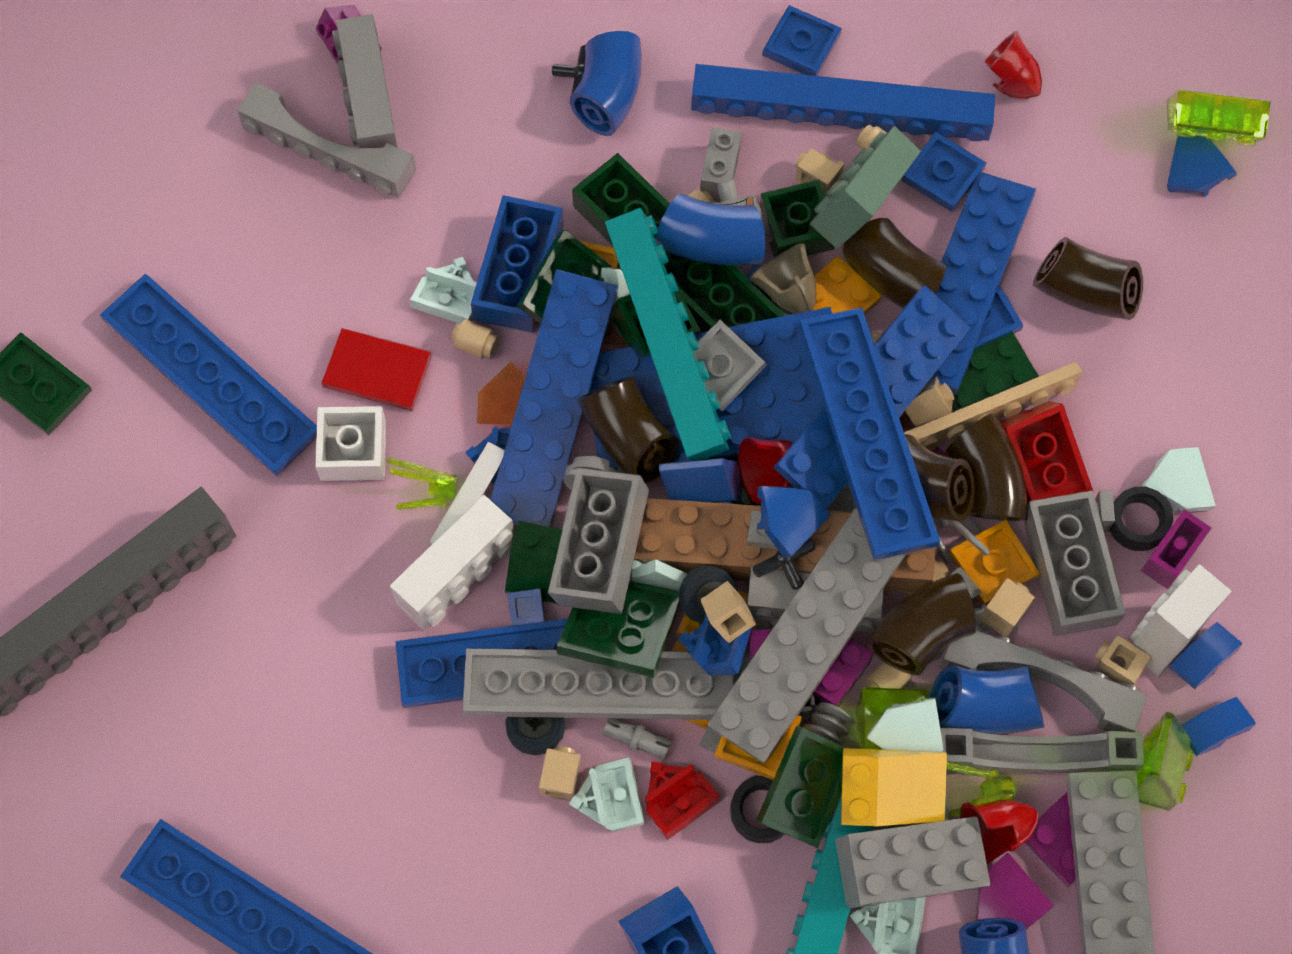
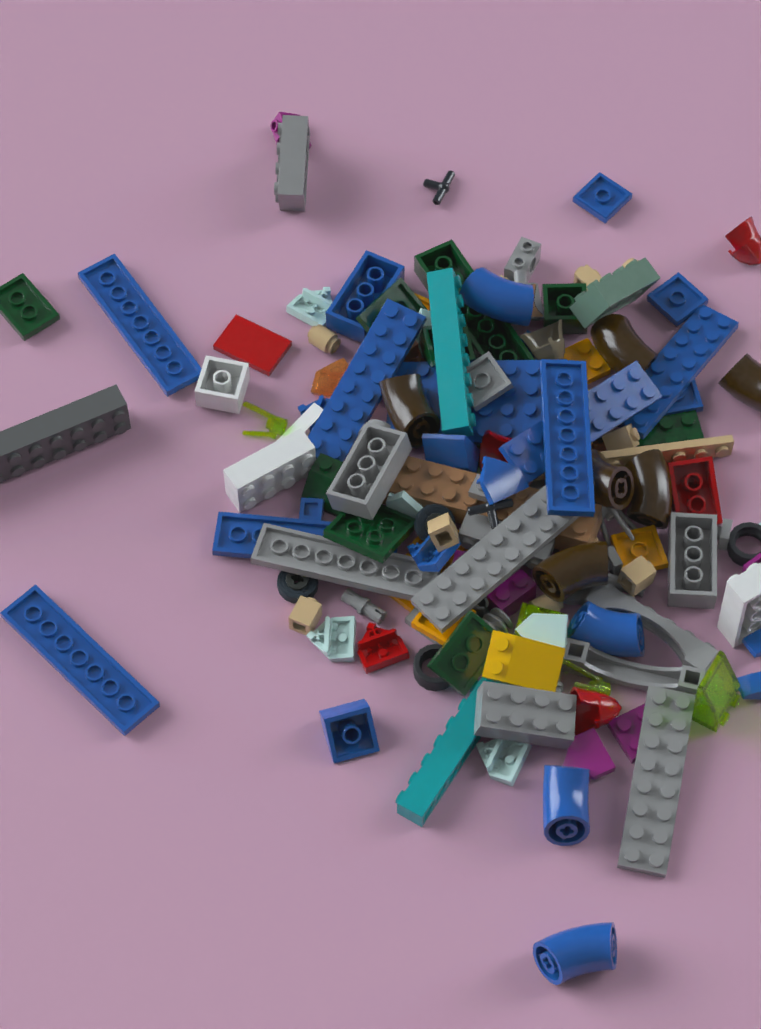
camera: 15 degrees right, 10 degrees down
(383, 168) = (290, 220): light grey arch -> none
(608, 81) = (459, 194): blue brick -> none
(842, 102) = (619, 240): blue brick -> none
(1131, 657) = (709, 622): tan brick -> none

